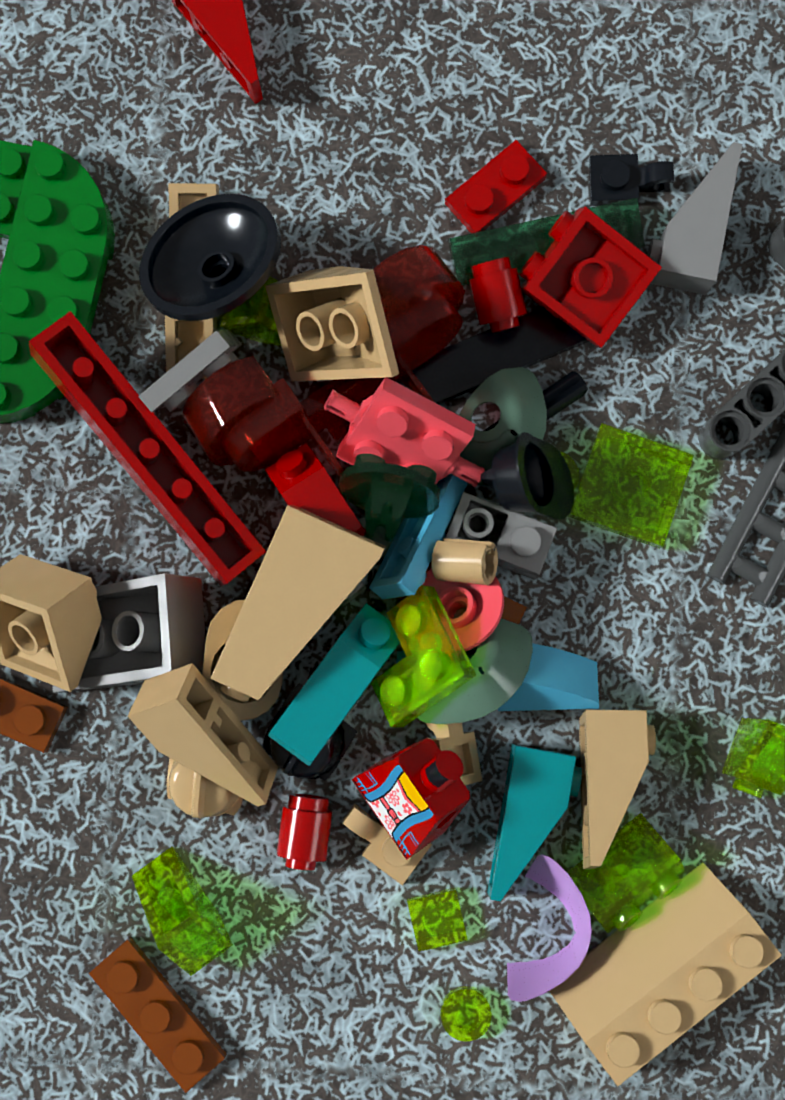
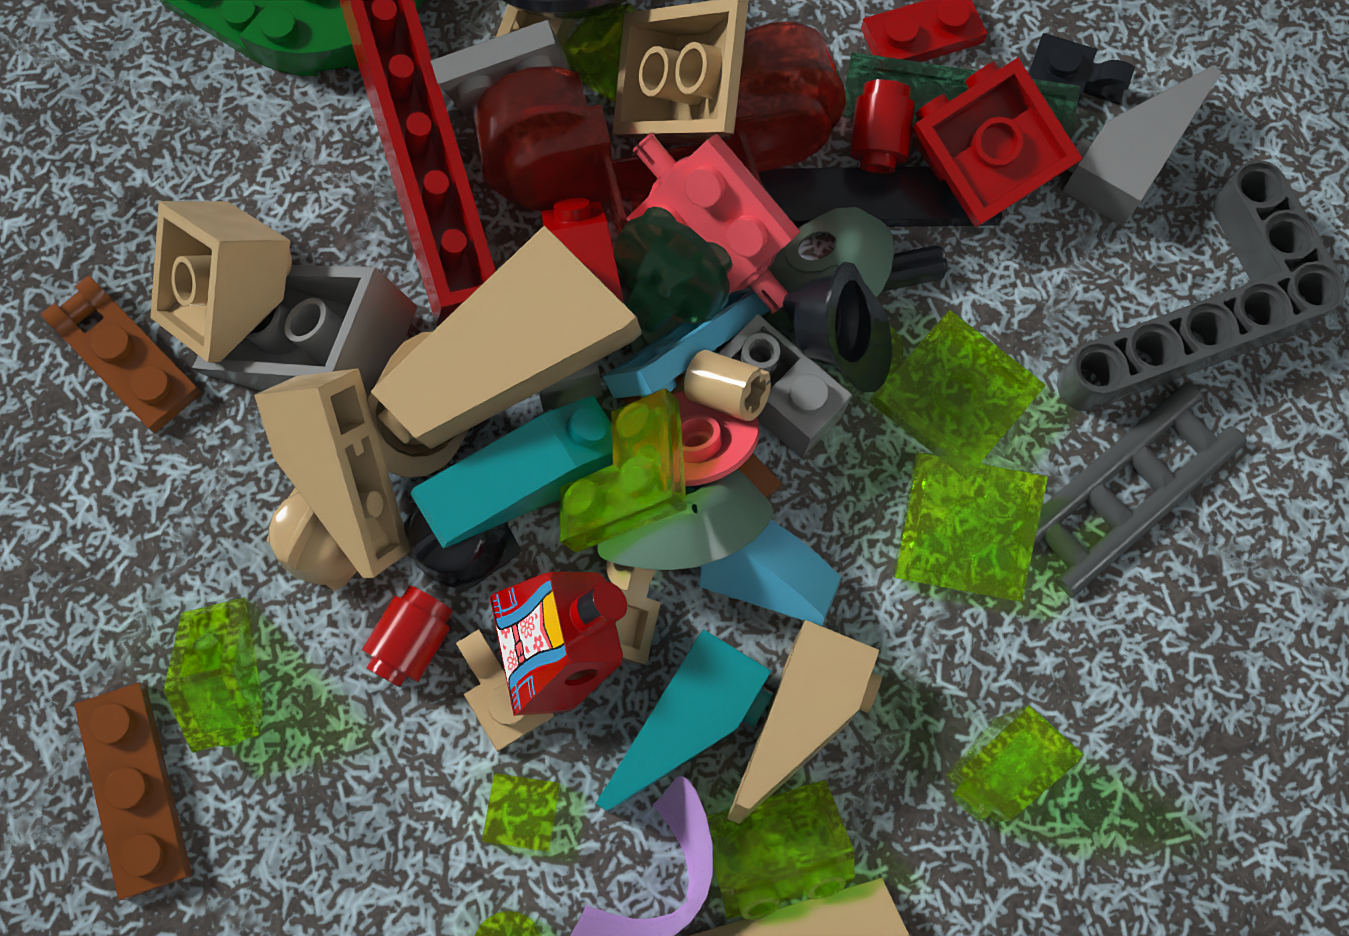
camera: 15 degrees right, 10 degrees down
(676, 588) = (969, 526): none -> clear neon green plate

